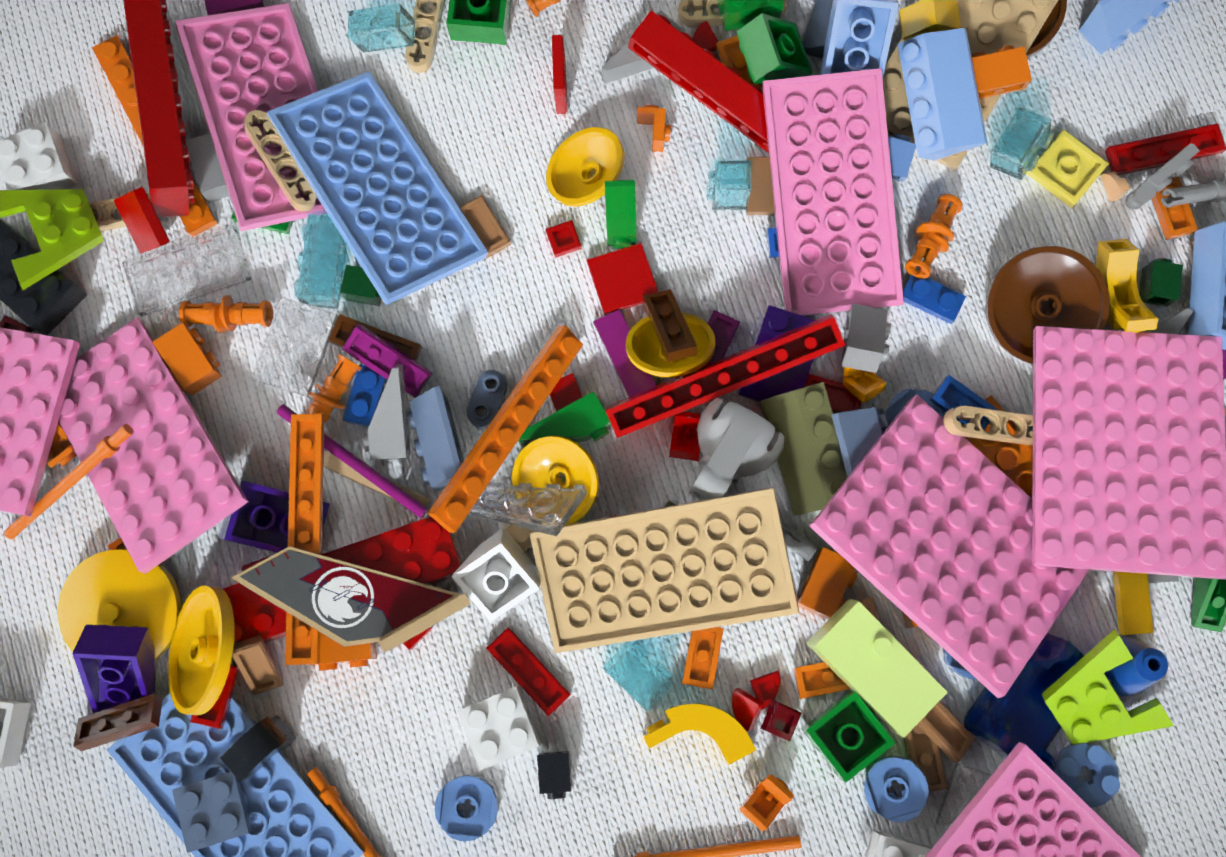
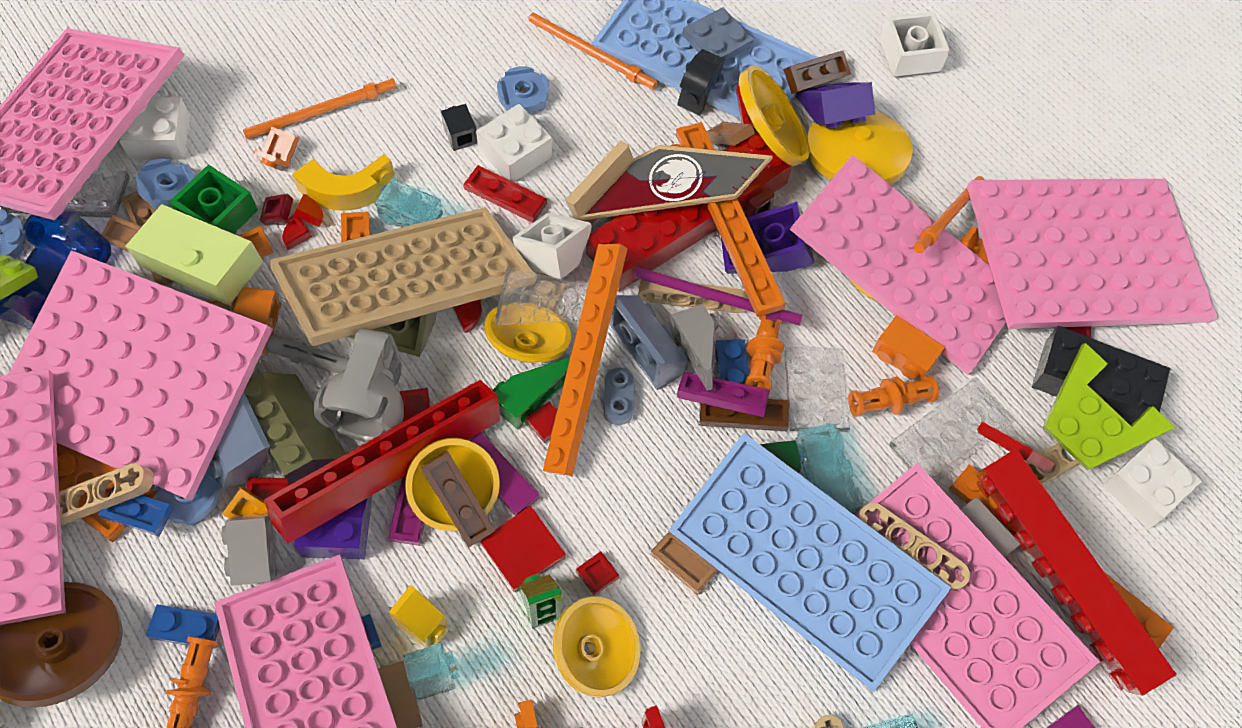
camera: 155 degrees right, 15 degrees down
(729, 235) = (419, 618): none -> yellow slope

